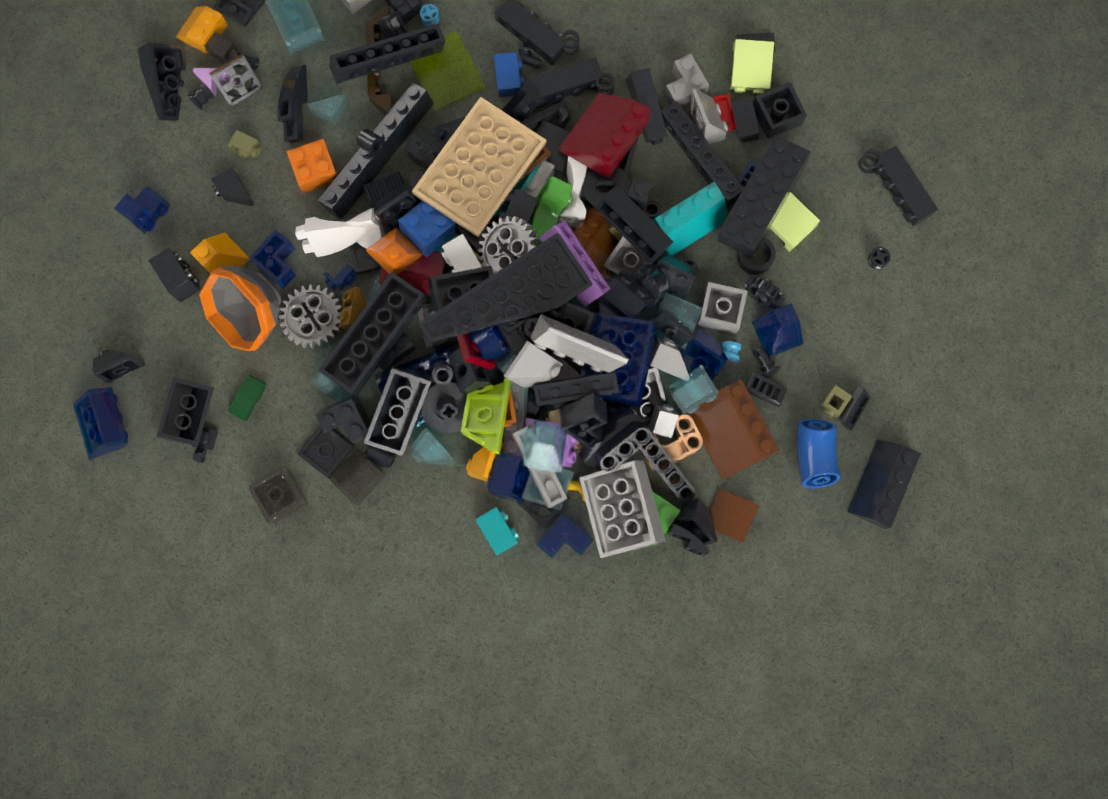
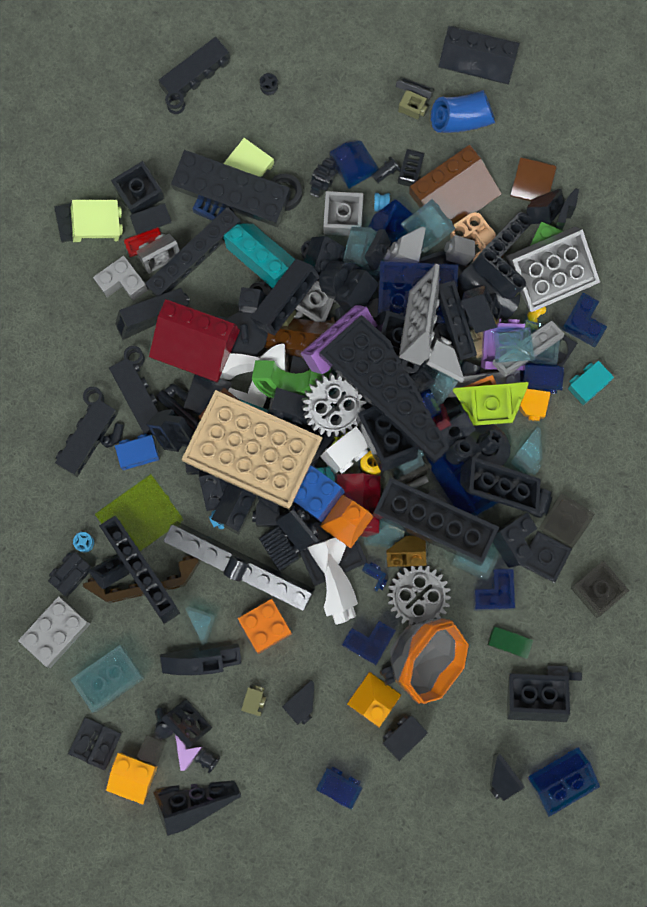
camera: 95 degrees left, 0 degrees up
(292, 392) = (501, 595): none -> clear blue brick

